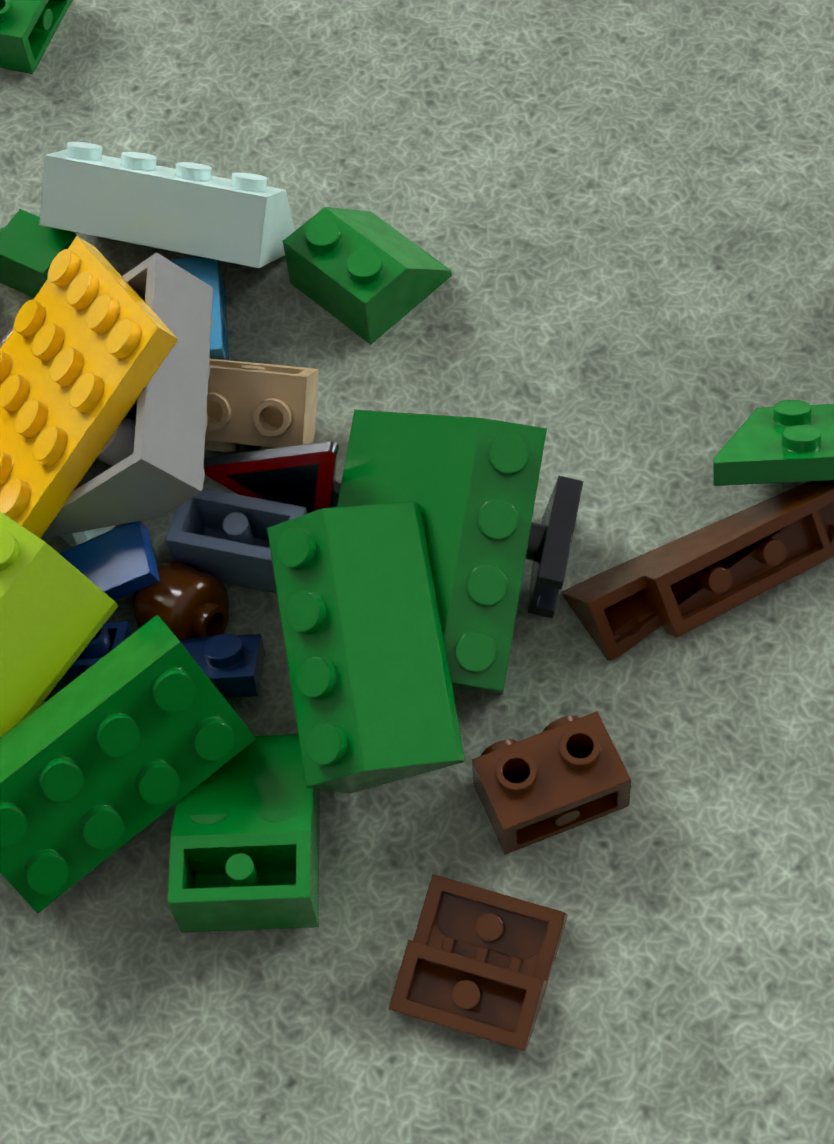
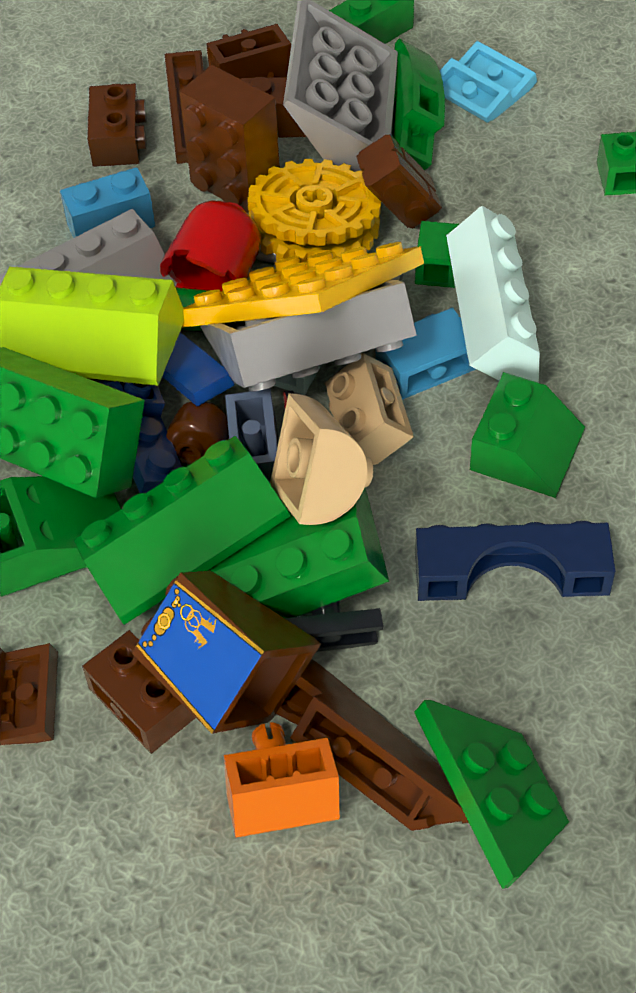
camera: 65 degrees right, 5 degrees down
(388, 432) = (317, 463): none -> tan brick
(552, 282) = (570, 555): none -> dark blue arch
(569, 649) = (223, 652): none -> slope
(748, 661) = (281, 783): none -> orange brick

